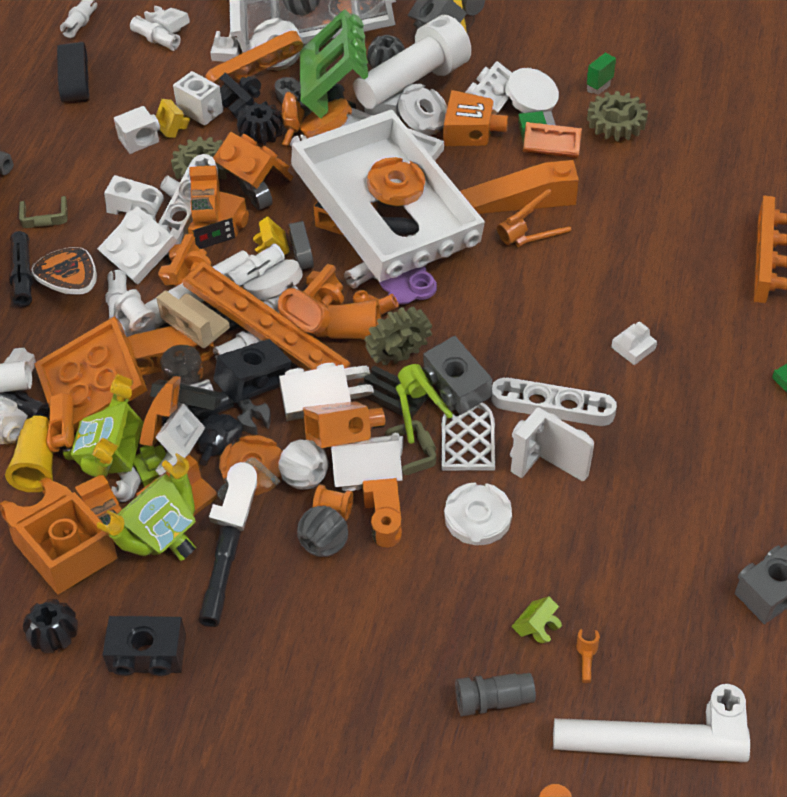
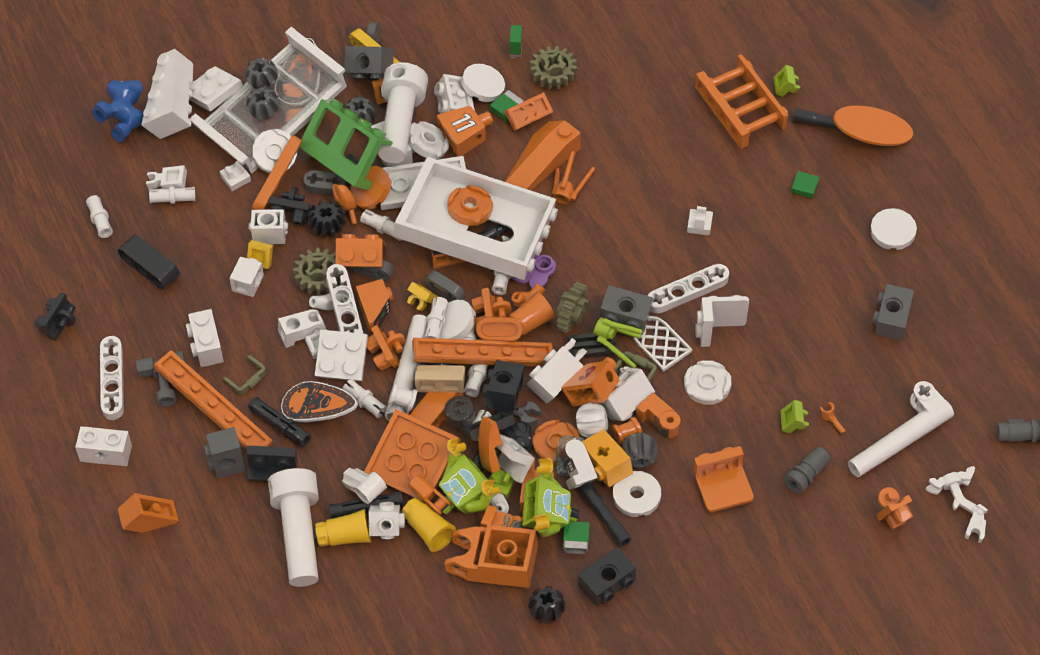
camera: 40 degrees left, 5 degrees up
(41, 157) = (206, 338): none -> white brick
(164, 577) = (576, 537): none -> green piece
(204, 193) = (363, 293): orange leg -> none
(275, 514) = (608, 458): none -> light orange brick
(276, 561) = (637, 506): none -> white tile
(383, 630) = (722, 479): none -> orange bracket

